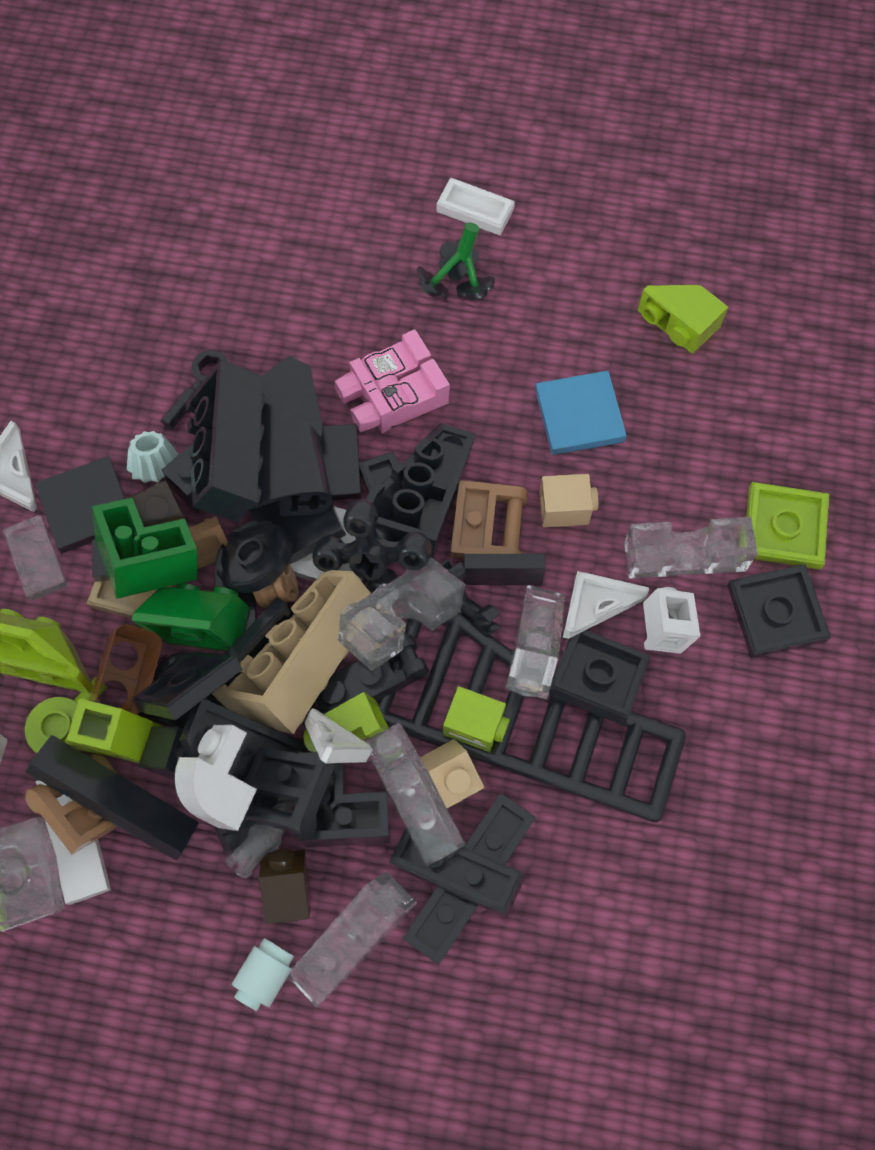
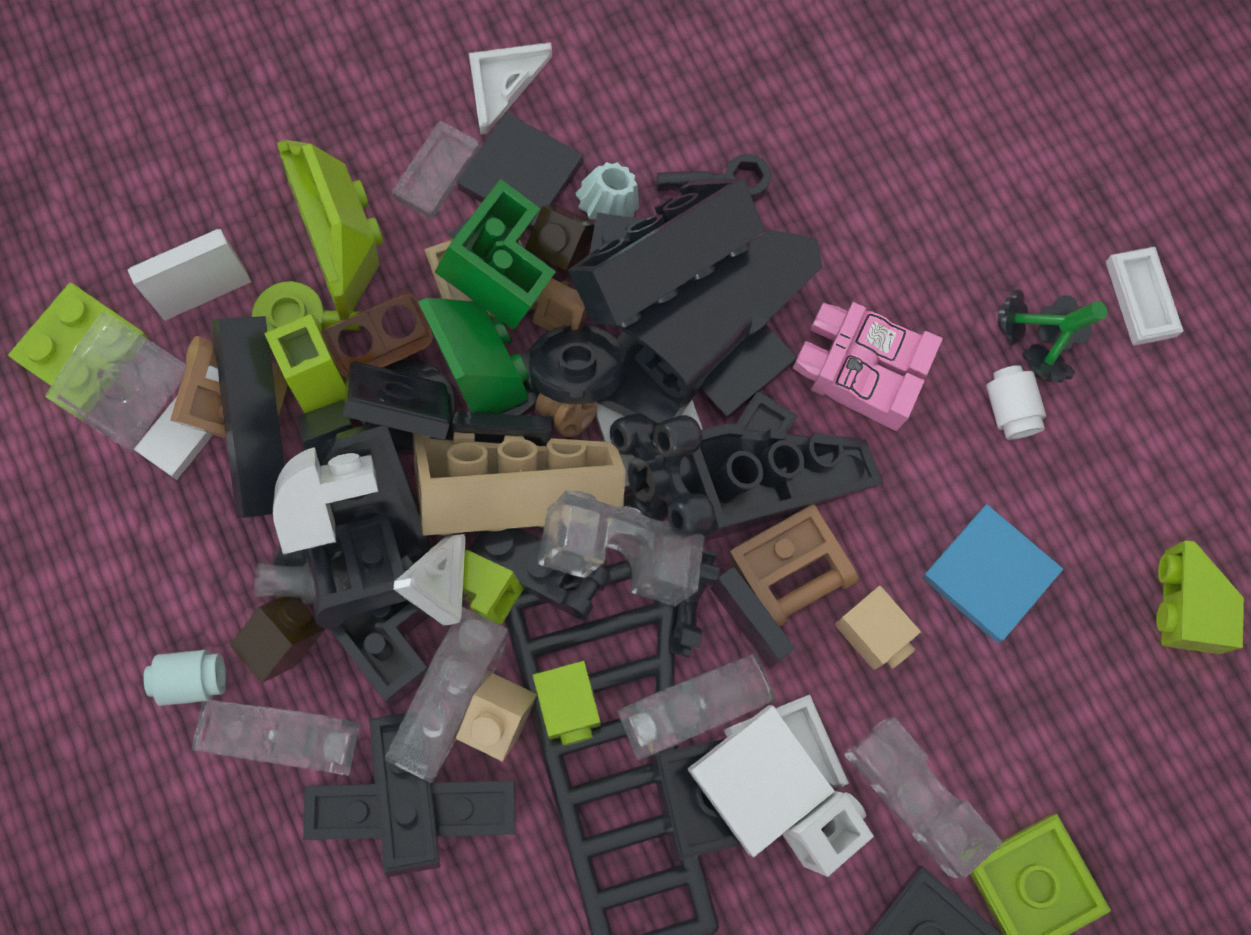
camera: 50 degrees right, 5 degrees up
(486, 320) = (1016, 402): none -> white brick
(612, 634) = (761, 780): none -> white tile

